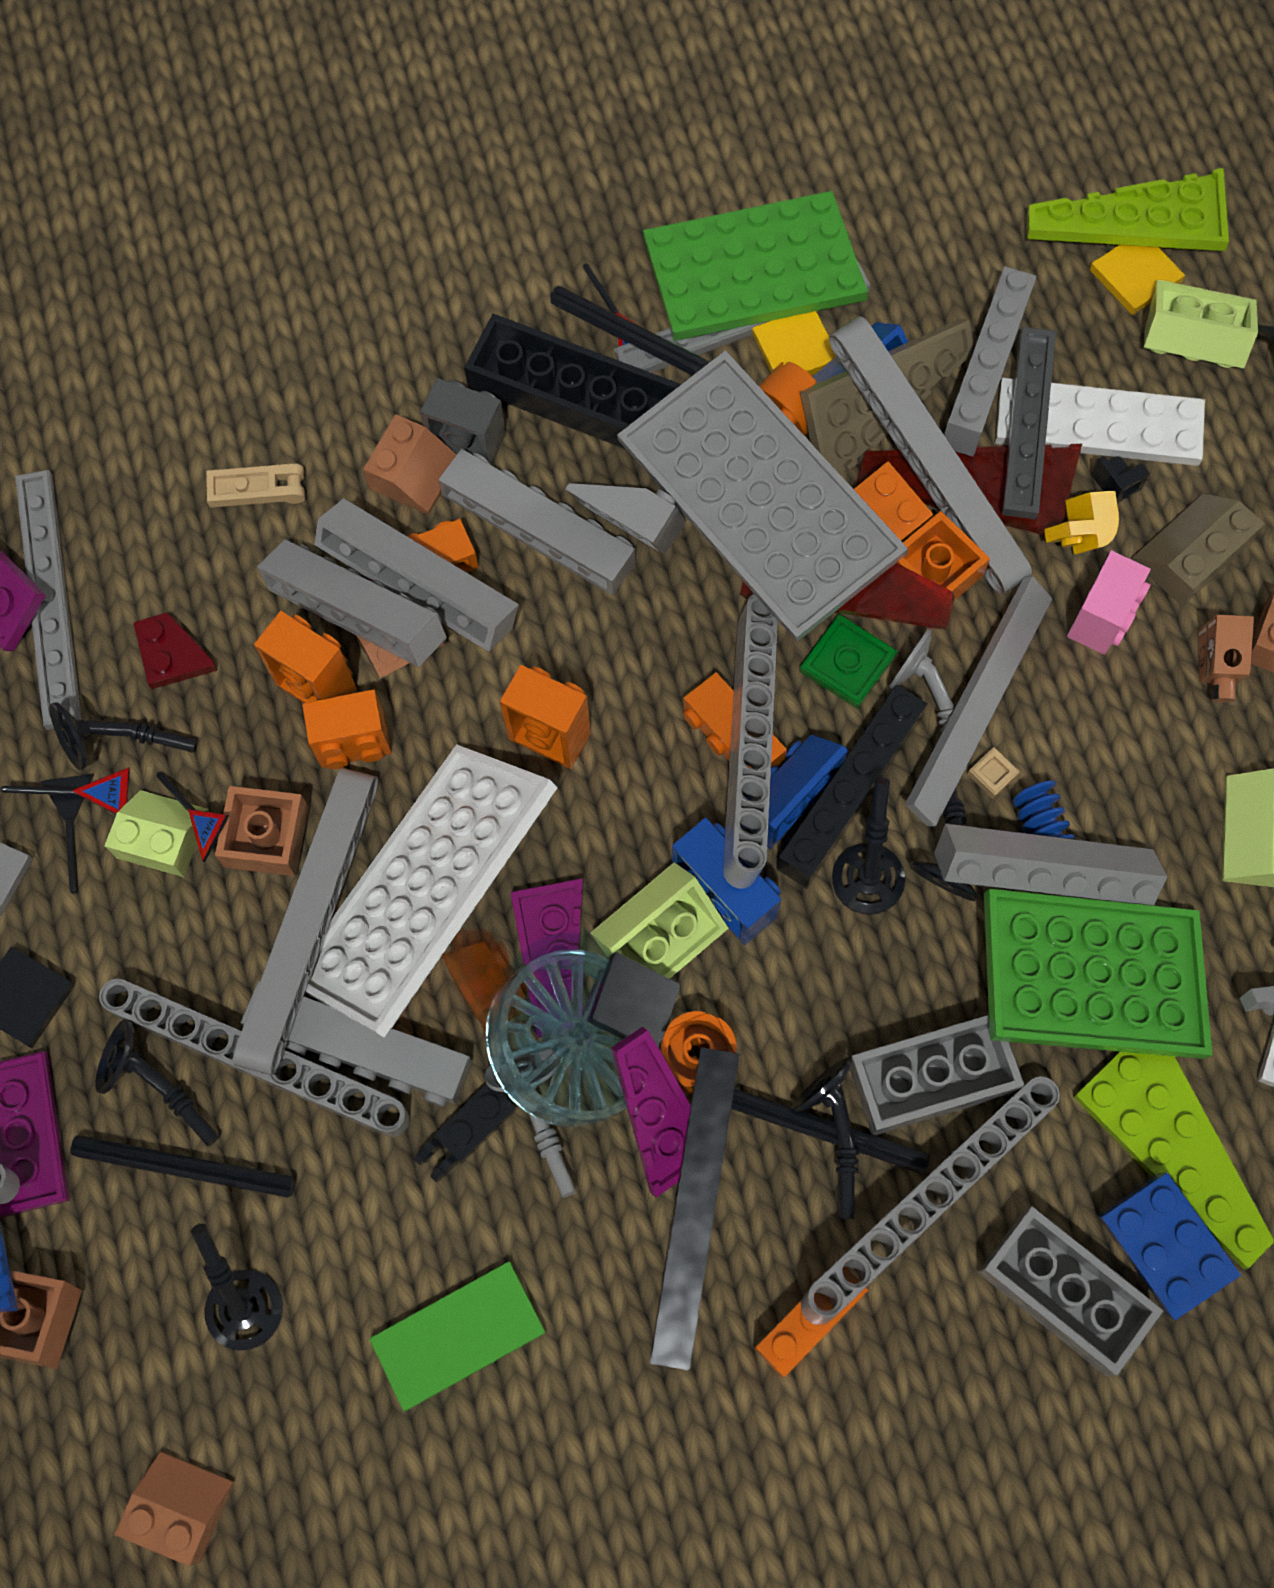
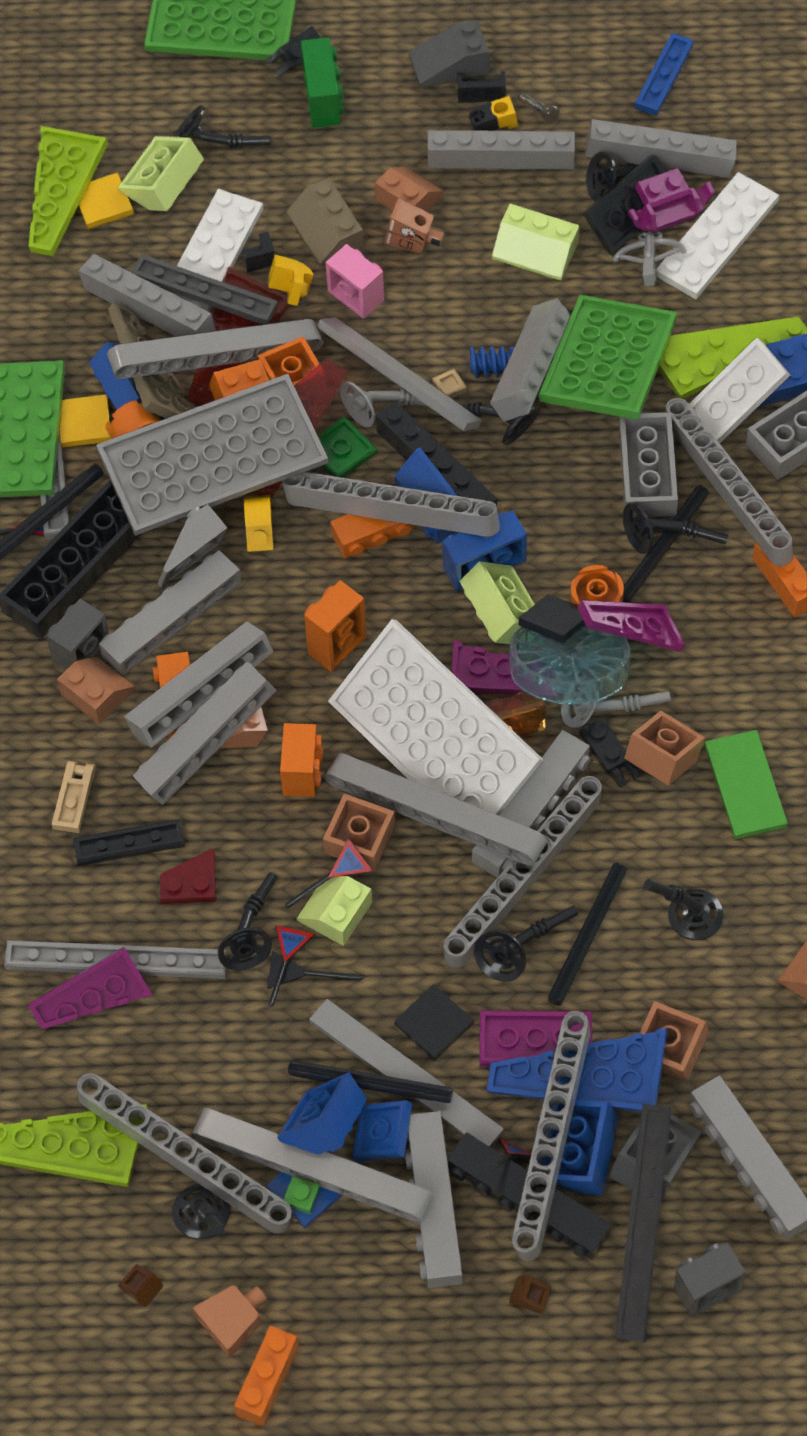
camera: 75 degrees left, 10 degrees down
(209, 567) = (129, 842): none -> black tile
(303, 661) = (246, 770): orange brick -> none
(471, 1205) = (664, 747): none -> nougat brick
(695, 1209) = (699, 617): black tile -> none
(698, 582) = (258, 523): none -> yellow brick
(871, 867) = (500, 472): black dish -> none
(1095, 1177) = (739, 389): none -> white plate

